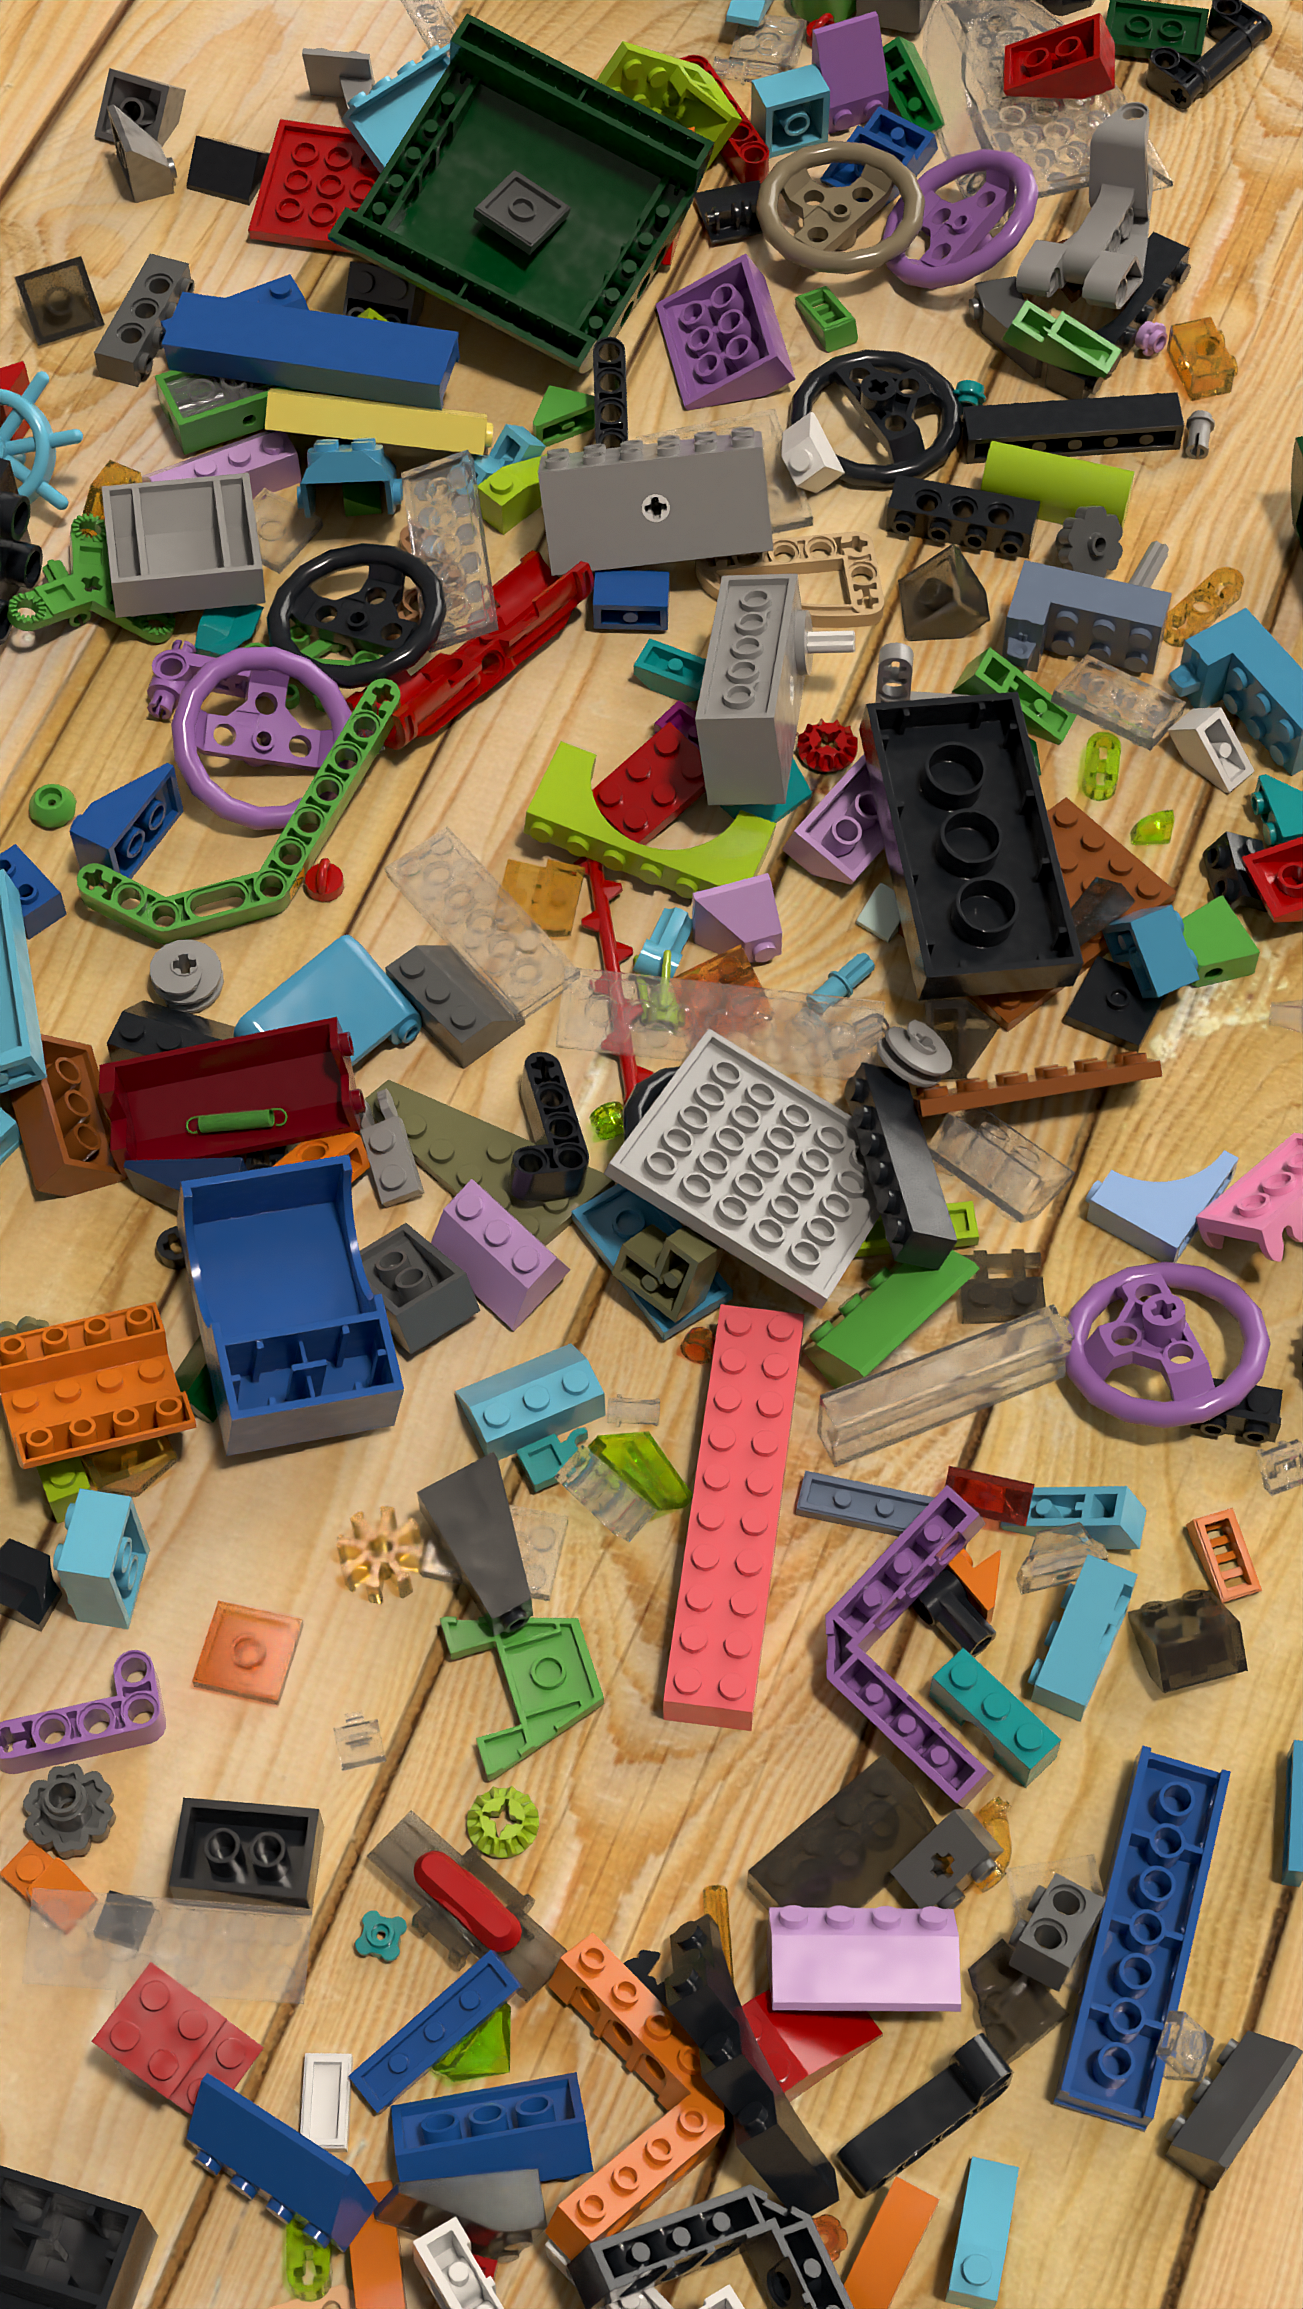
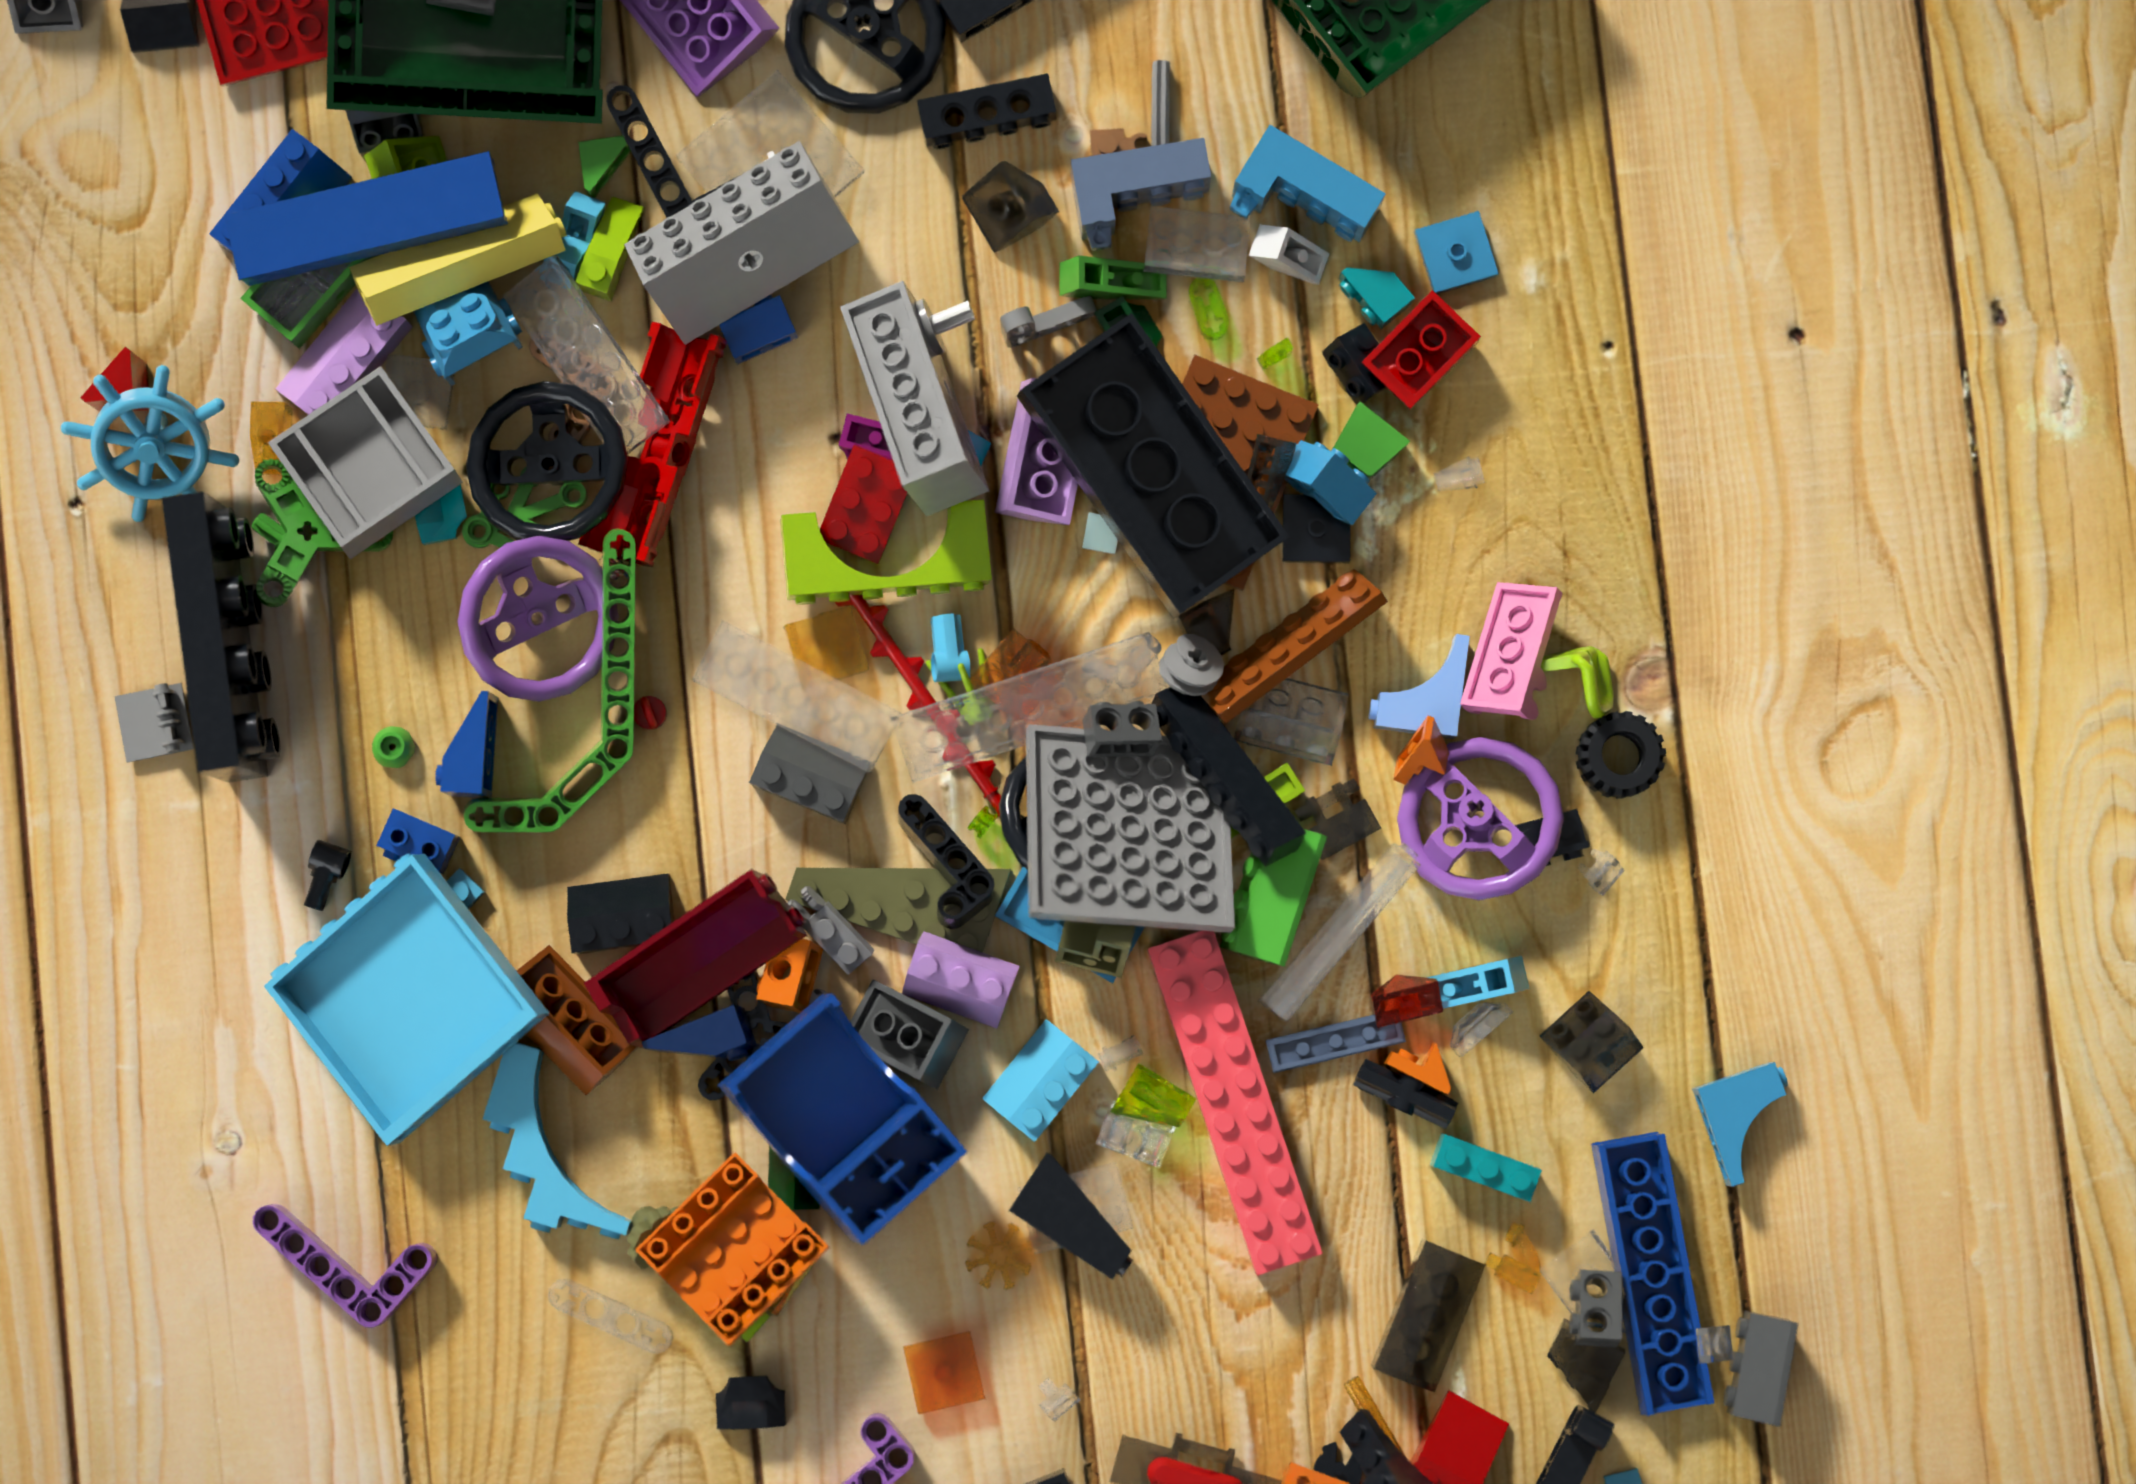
camera: 30 degrees left, 25 degrees up
(41, 957) = (465, 888): none -> medium azure plate
(58, 301) = (102, 245): clear smoke slope -> none
(102, 1558) = (812, 1370): medium azure brick -> none
(136, 329) = (172, 176): dark grey brick -> none
(141, 159) = (83, 51): flat silver slope -> none
(175, 669) = (428, 598): medium lavender piece -> none
(187, 975) = (586, 869): light grey piece -> none
(236, 1121) = (707, 969): bright green piece -> none
(344, 985) = (730, 835): dark azure windscreen -> none
(515, 1837) = (1170, 1395): lime gear -> none
(546, 1676) = (1162, 1287): bright green wing -> none
(547, 1456) = (1079, 1122): teal plate -> none
(670, 671) = (827, 377): teal slope -> none
(698, 1345) = (1141, 976): clear orange hinge -> none
(738, 915) = (1001, 603): lavender slope -> none
(800, 548) = (876, 215): tan beam -> none
(806, 1076) = (1123, 737): none -> dark grey brick
(810, 455) = (831, 109): white slope -> none
(827, 758) = (987, 406): red gear -> none
(850, 975) = (1098, 613): medium azure axle -> none
(863, 1959) = (1479, 1392): lavender slope -> none
(866, 1615) = (1396, 1190): medium lavender brick -> none
(924, 1868) = (1503, 1292): dark grey brick -> none
(1057, 482) = (1053, 49): lime brick -> none
(1082, 1637) = (1520, 1082): medium azure wedge -> none
(1090, 541) = (1105, 96): dark grey plant -> none
(1135, 1242) = (1423, 749): none -> orange slope
(1204, 592) = (1219, 82): clear yellow beam -> none
(1233, 1536) = (1568, 939): orange slope -> none

